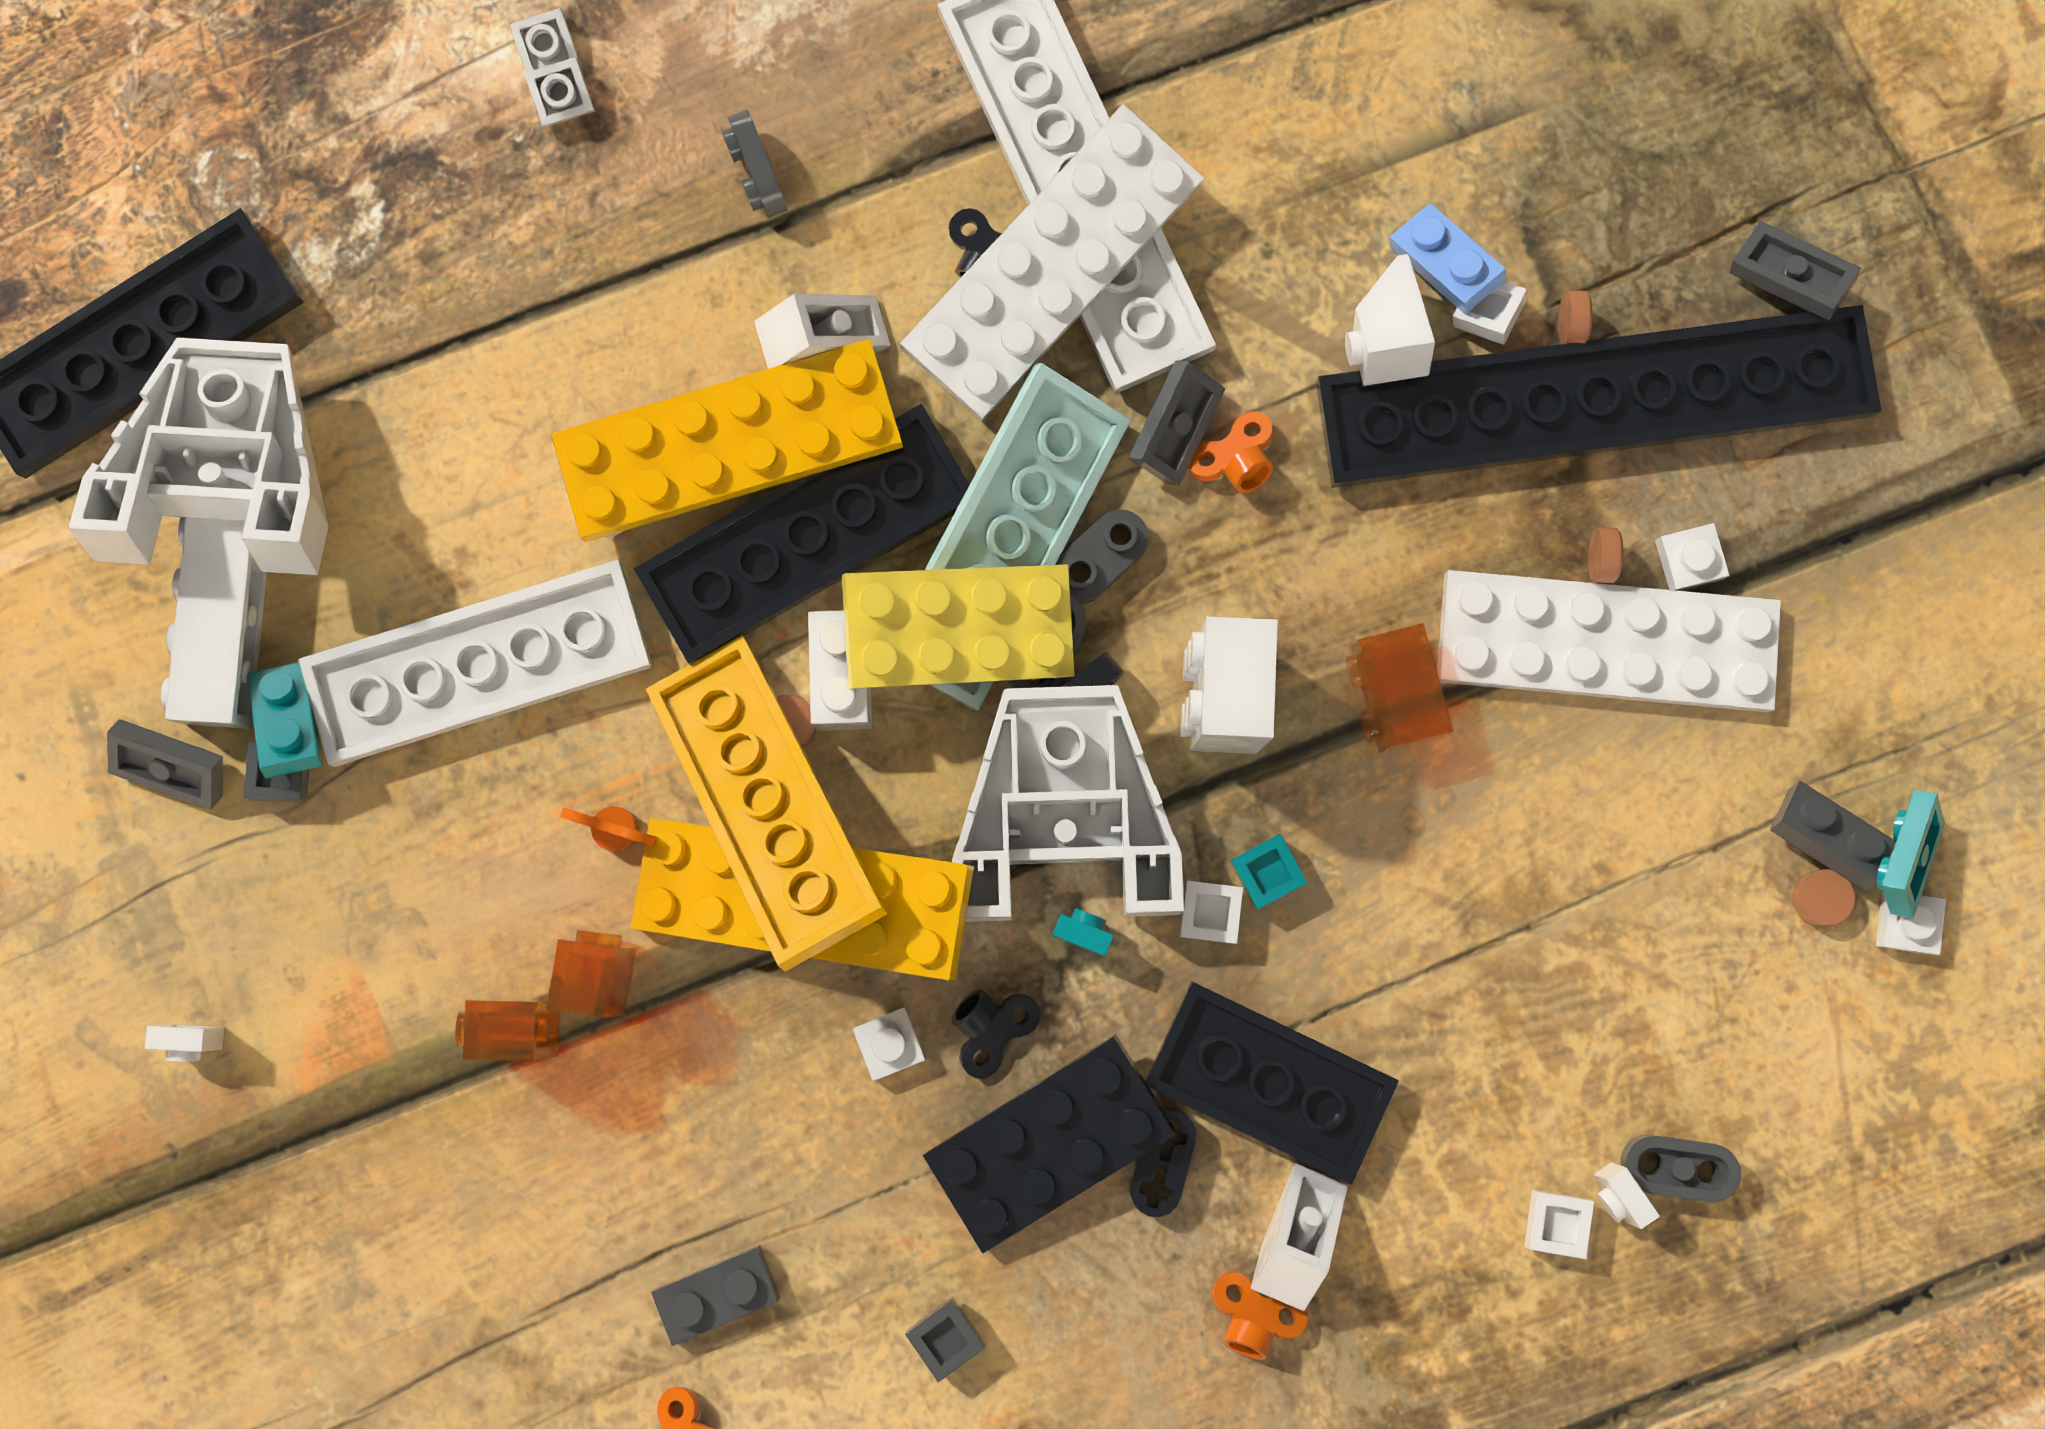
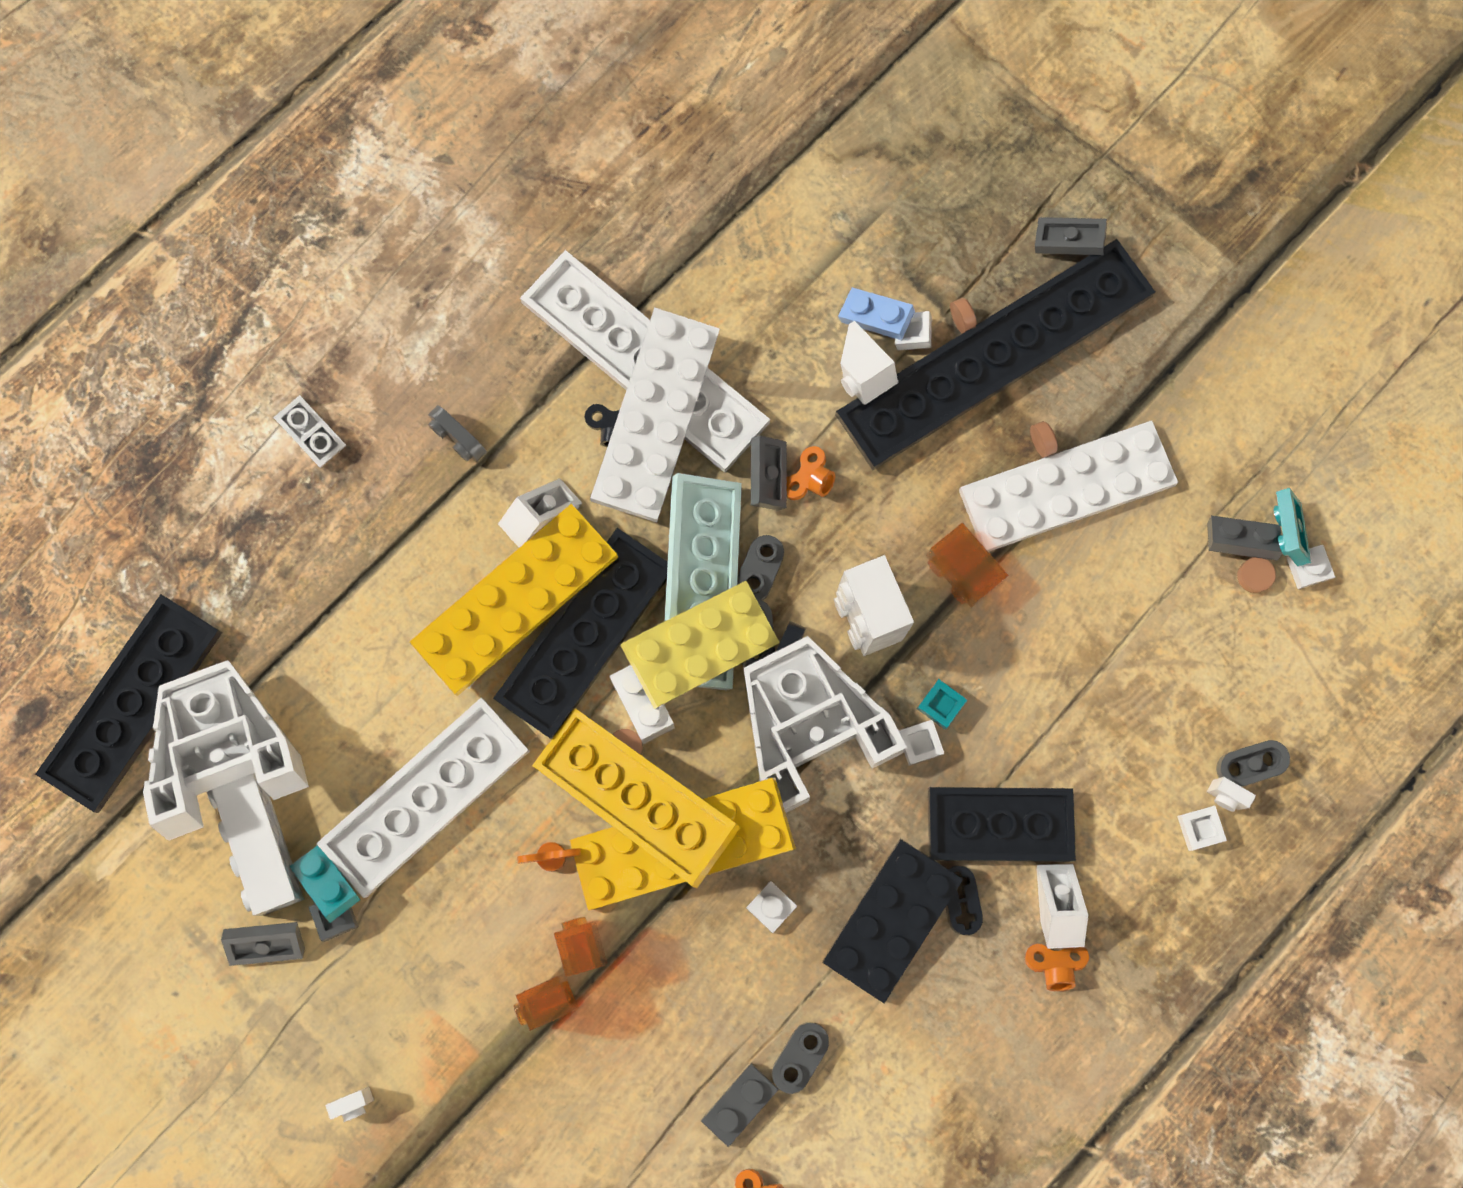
camera: 30 degrees left, 5 degrees down
(830, 1272) = (800, 1057): none -> dark grey plate
(945, 1339) = (886, 1064): dark grey plate -> none
(991, 1028) = (826, 869): black piece -> none
(1084, 931) = (853, 788): teal plate -> none
(1692, 557) = (1091, 419): white plate -> none

